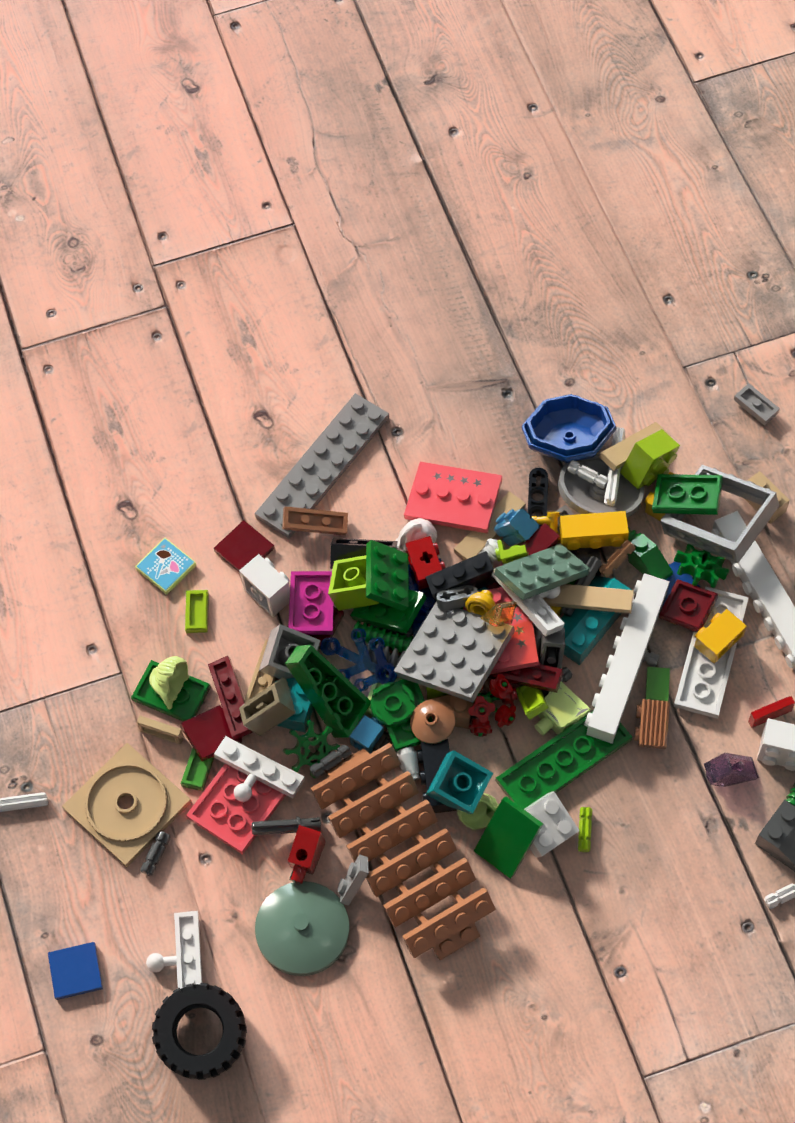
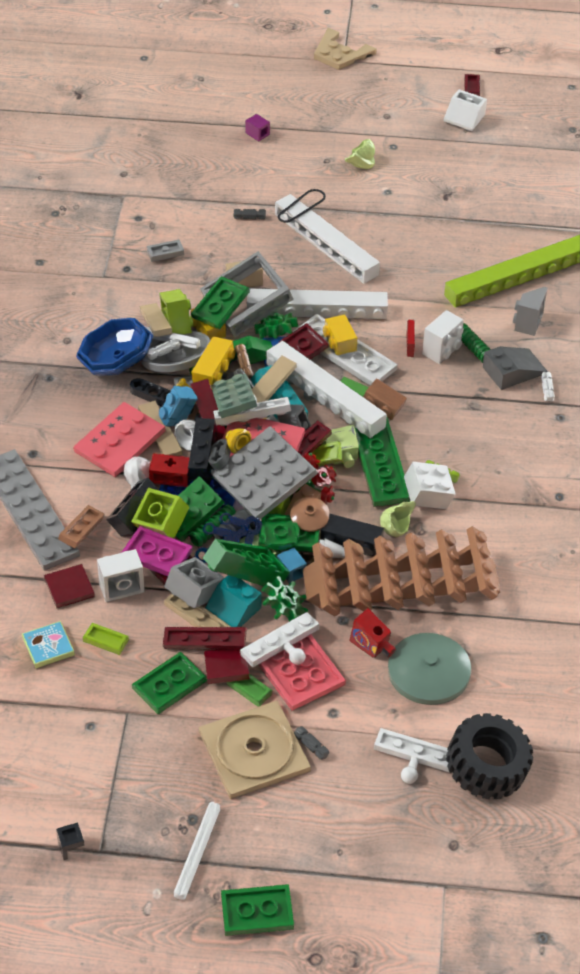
camera: 70 degrees left, 15 degrees down
(75, 970) = (385, 837): blue tile -> none
(160, 729) = (202, 698): tan tile -> none
(169, 678) = (161, 671): yellowish green hair -> none
(268, 708) = (234, 606): dark tan slope -> none
(284, 826) = (342, 636): dark grey axle -> none
(330, 761) = (303, 590): dark grey axle -> none
(355, 876) = (413, 611): light grey plate -> none
(387, 575) = (173, 485): green plate -> none
(459, 782) = (373, 512): teal slope -> none
(500, 614) = (258, 424): clear yellow slope -> none
(508, 837) = (430, 505): green tile -> none
(513, 553) = (206, 408): lime bracket -> none
(730, 770) = (442, 377): clear purple slope -> none

